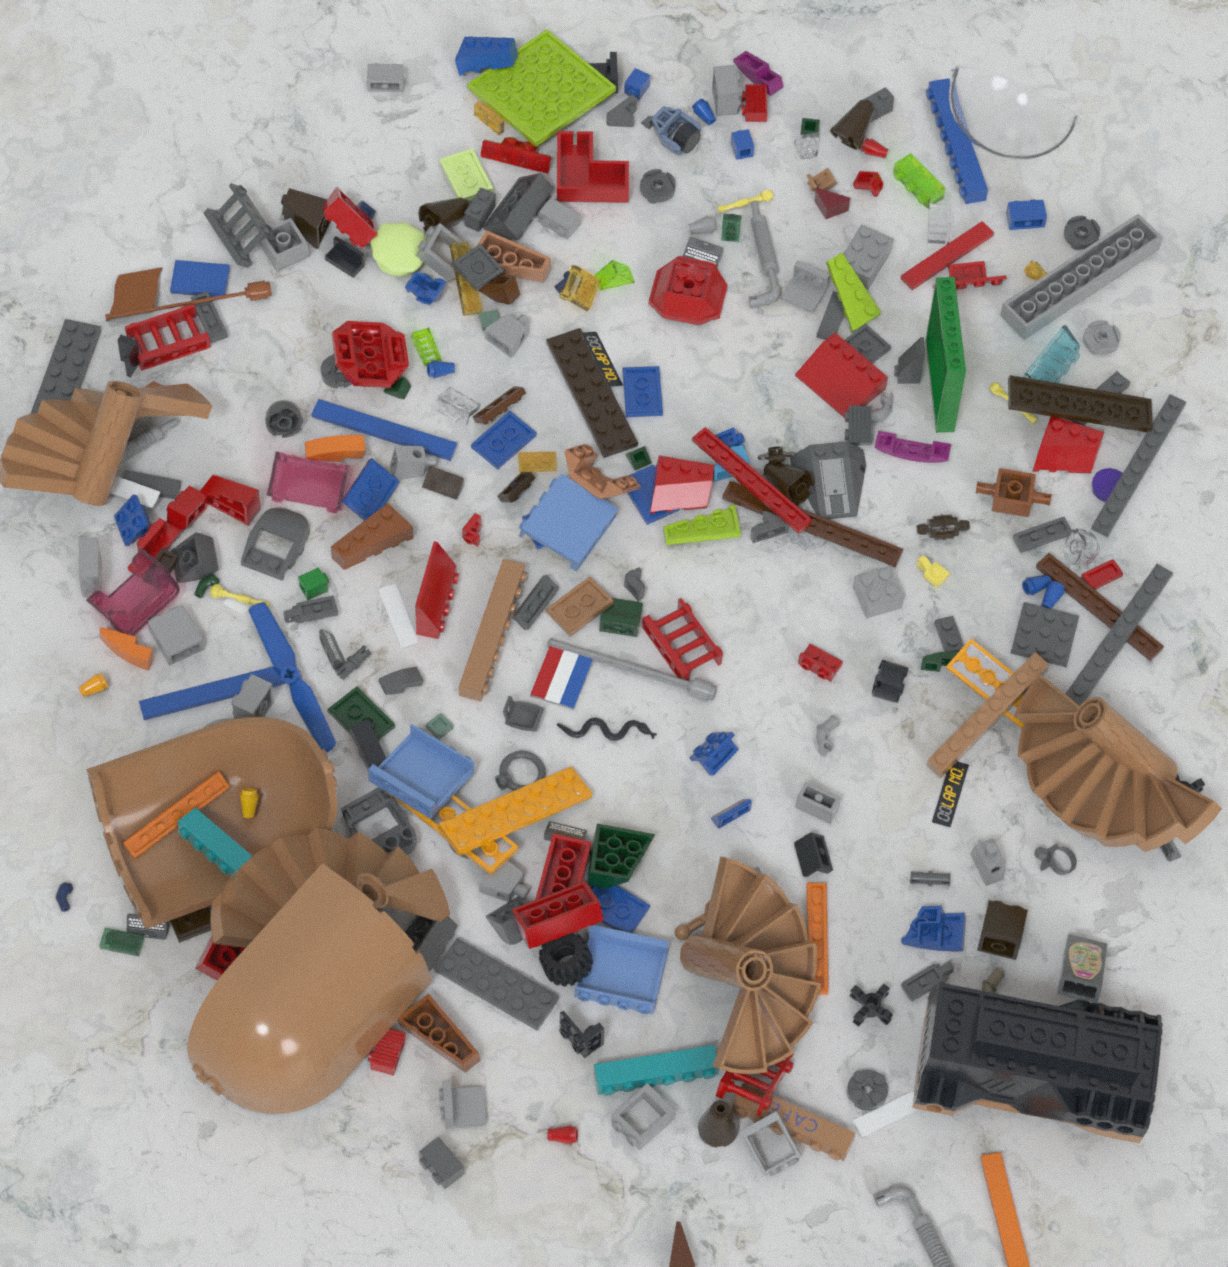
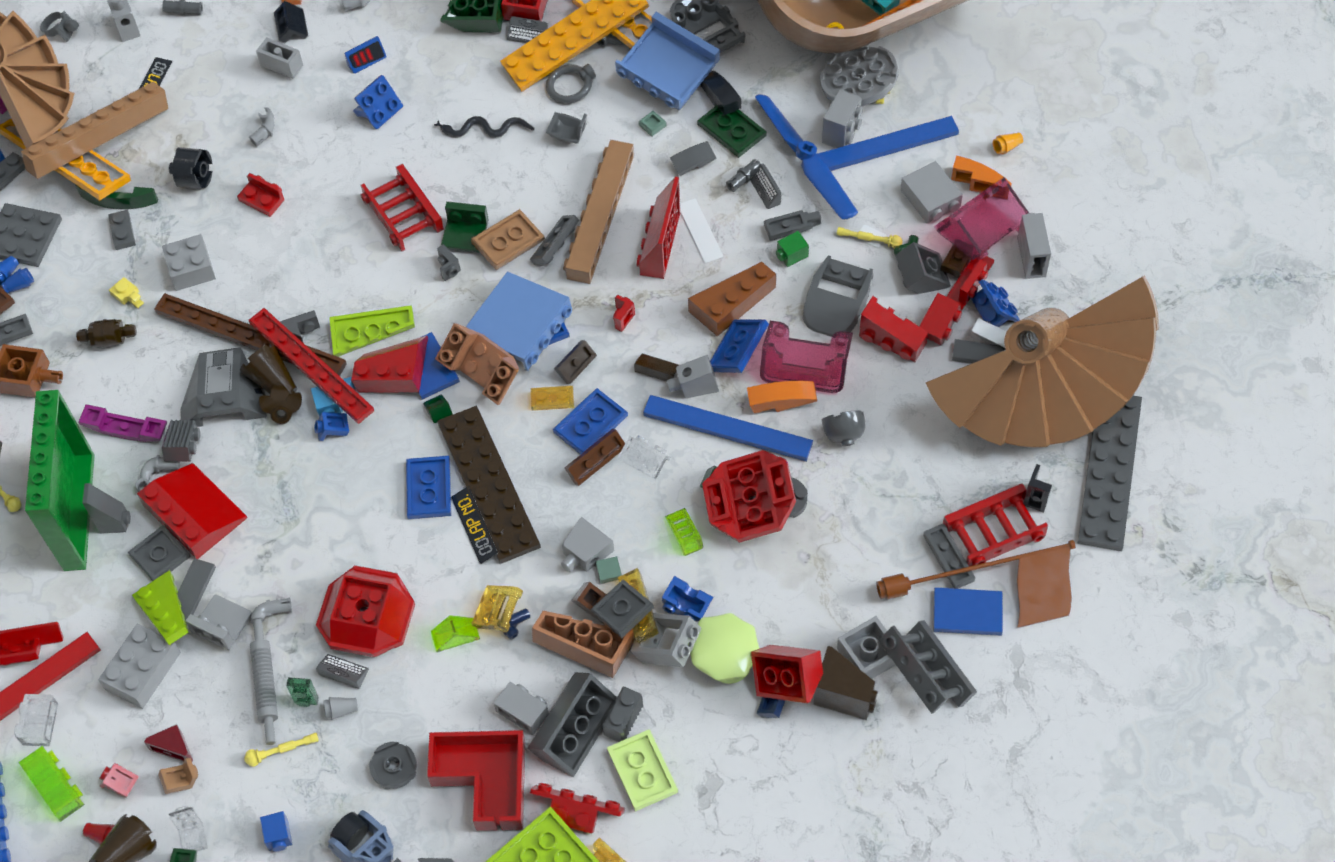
camera: 175 degrees left, 0 degrees up
(345, 257) = (784, 636): black panel -> none
(438, 368) = (665, 501): blue cone -> none
(445, 212) = (667, 702): dark brown cone -> none
(568, 667) = (522, 180): flag -> none

